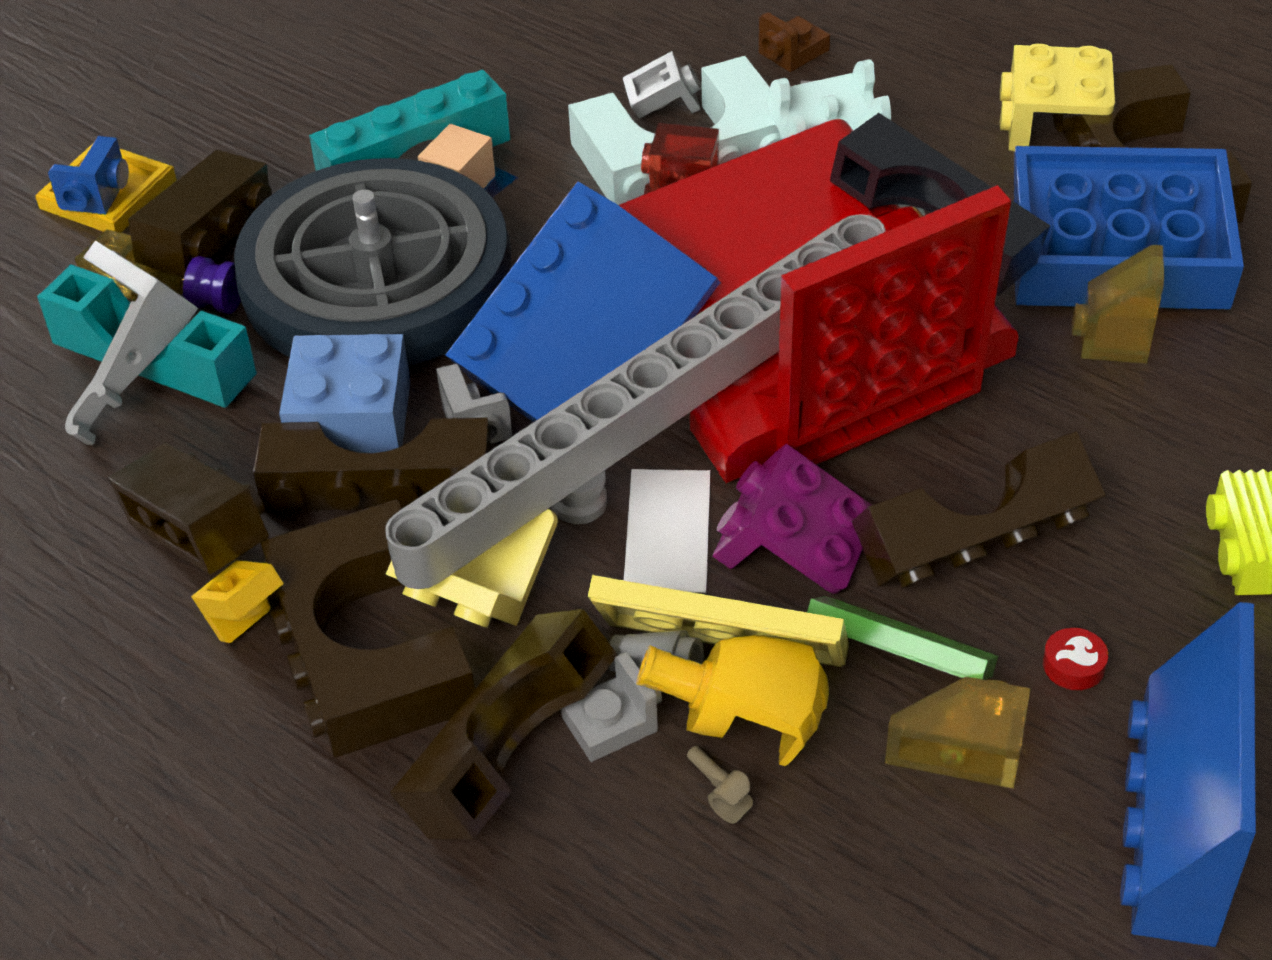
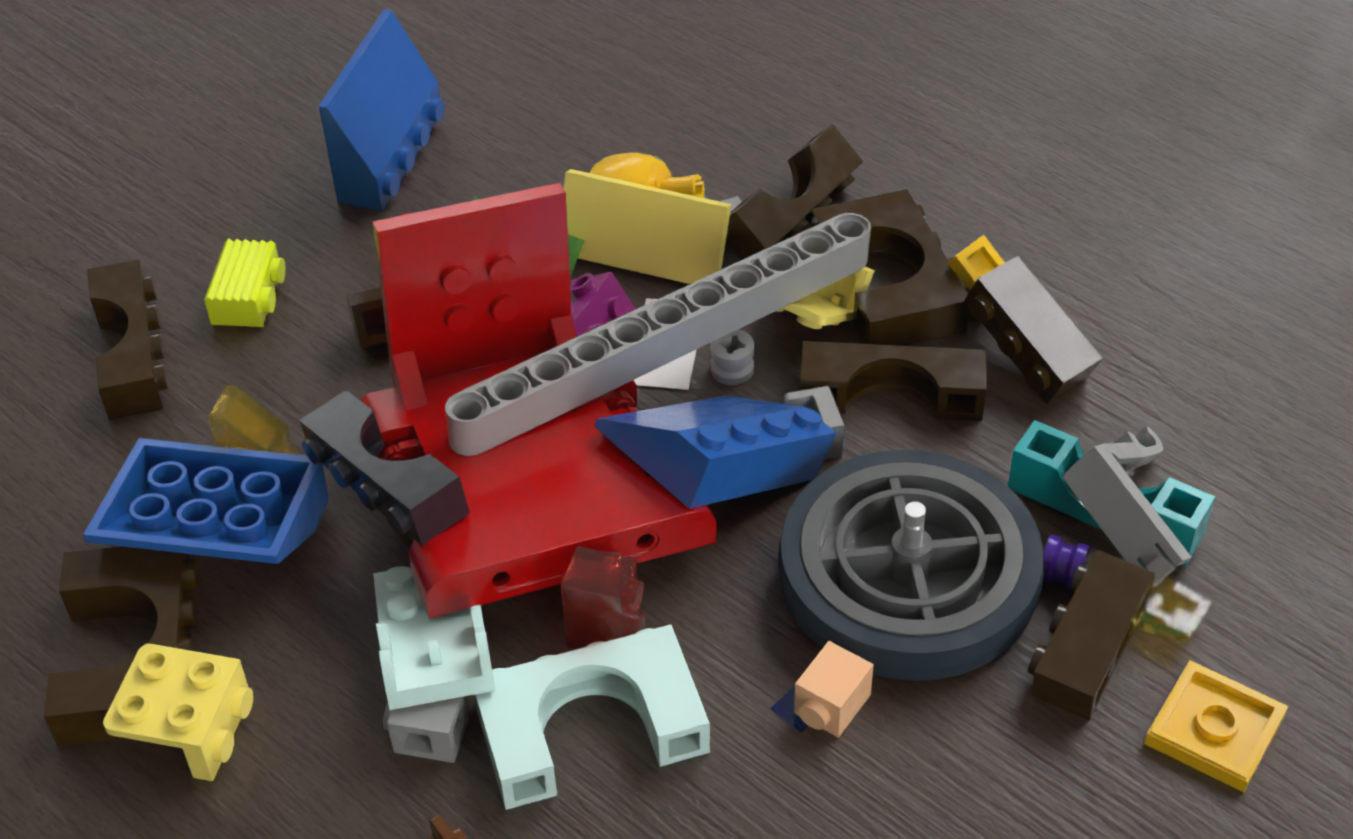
camera: 175 degrees left, 0 degrees up
(94, 182) = (1222, 663): blue bracket -> none
(349, 387) = (923, 416): medium blue brick -> none
(392, 129) = (833, 745): teal arch -> none
(660, 83) = (599, 788): light grey bracket -> none
(962, 732) = (496, 174): clear yellow slope -> none

